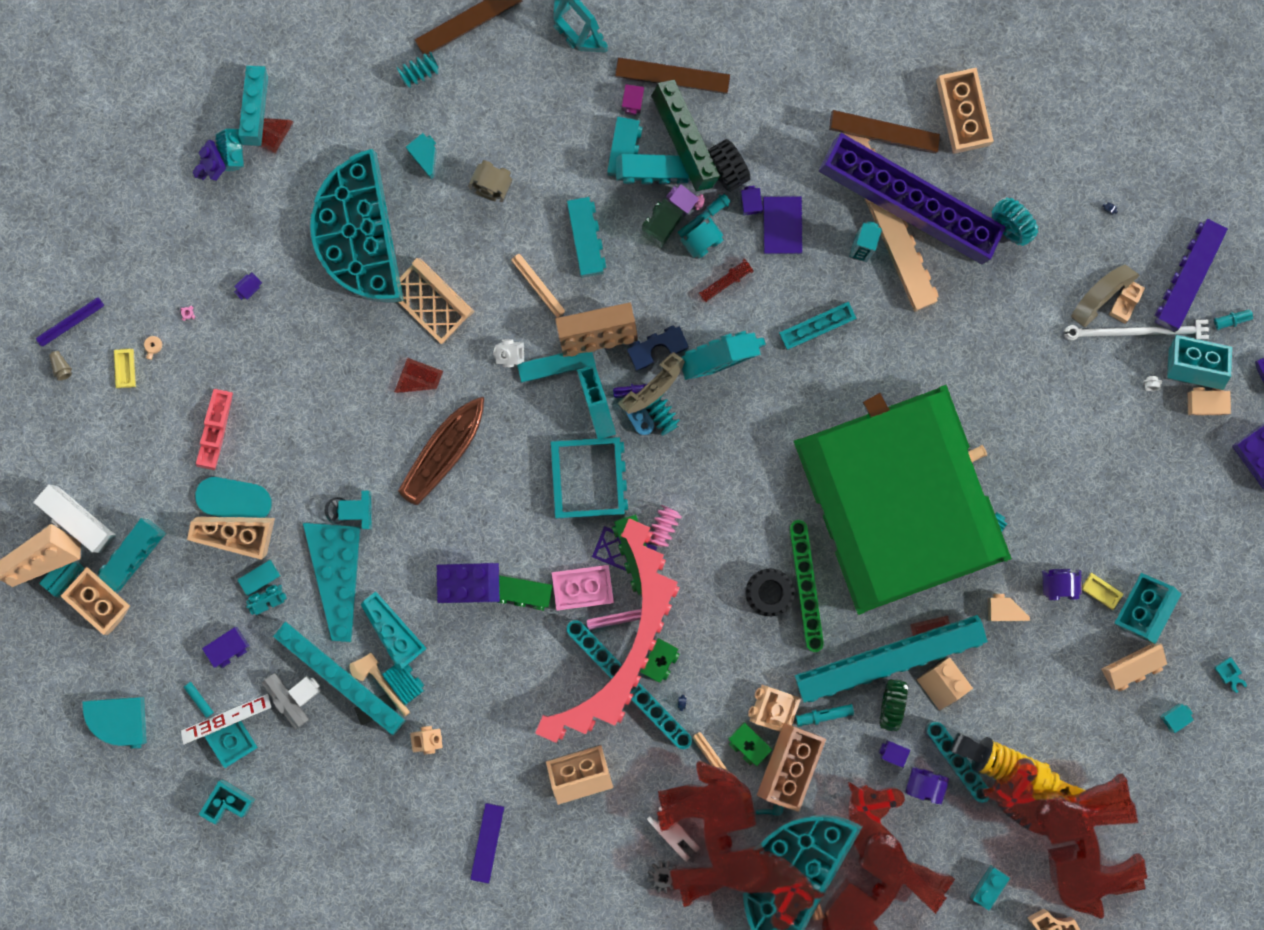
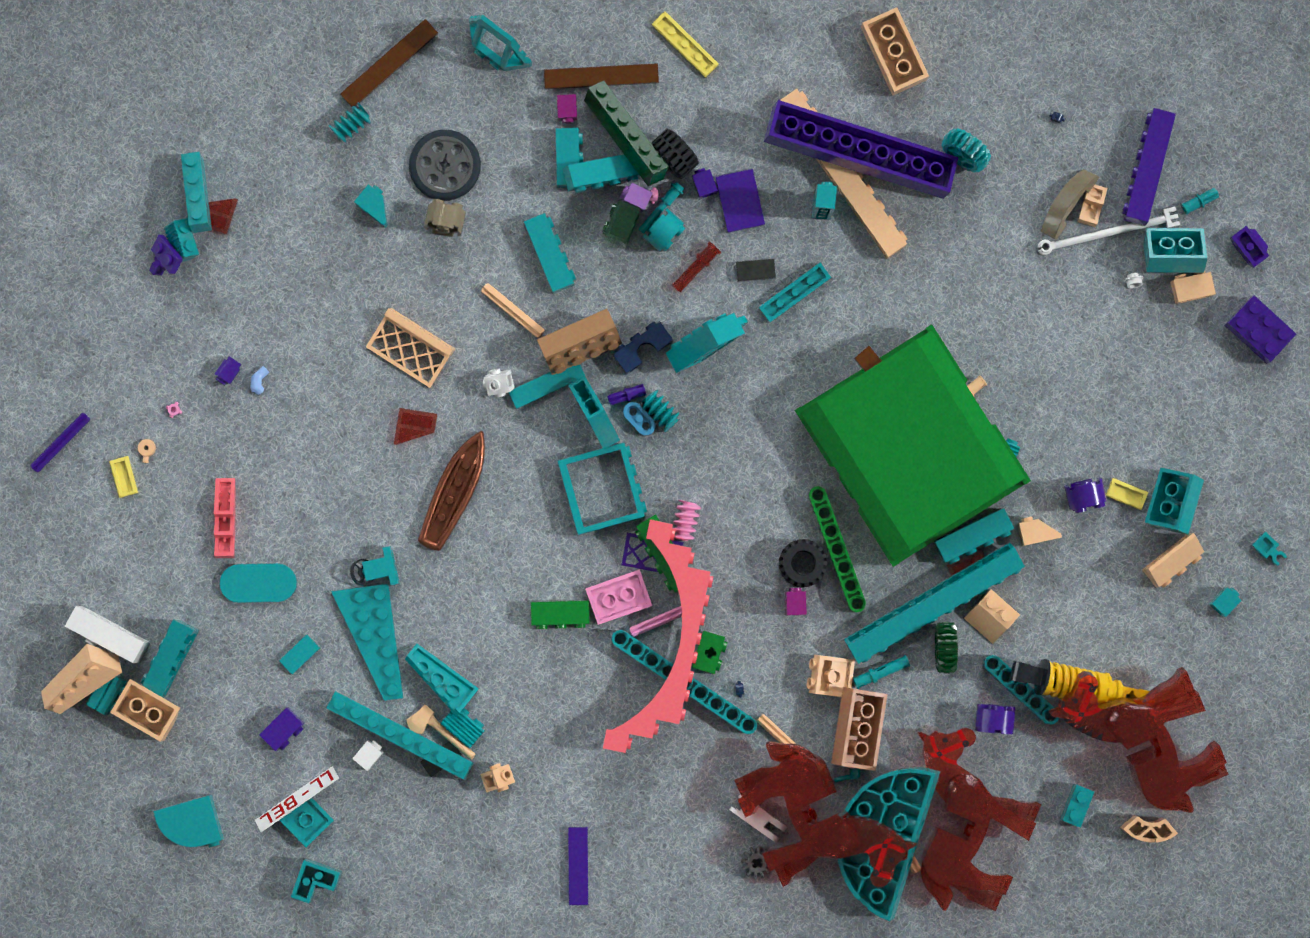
camera: 10 degrees left, 0 degrees up
(60, 367) = (61, 490): dark tan cone -> none
(198, 699) = (266, 786): teal piece -> none
(233, 534) = (268, 616): light nougat wedge -> none
(272, 305) = (256, 380): none -> light blue arm
(273, 595) = (317, 667): teal hinge -> none
(284, 701) = (351, 769): light grey piece -> none
(354, 230) = (321, 294): teal brick -> none
(468, 583) = (506, 616): dark purple brick -> none
(476, 134) = (440, 190): none -> wedge
(579, 774) = (654, 780): light nougat slope -> none
(656, 387) = (649, 387): dark tan slope -> none
(743, 734) = (808, 706): green brick -> none
(754, 629) = (795, 602): none -> magenta brick
(761, 61) = (685, 44): none -> light yellow tile
(784, 296) = (755, 270): none -> pearl dark grey tile
(884, 131) = (820, 88): reddish brown tile -> none
(894, 753) = (957, 694): dark purple brick -> none
(943, 600) = (974, 535): none -> teal brick

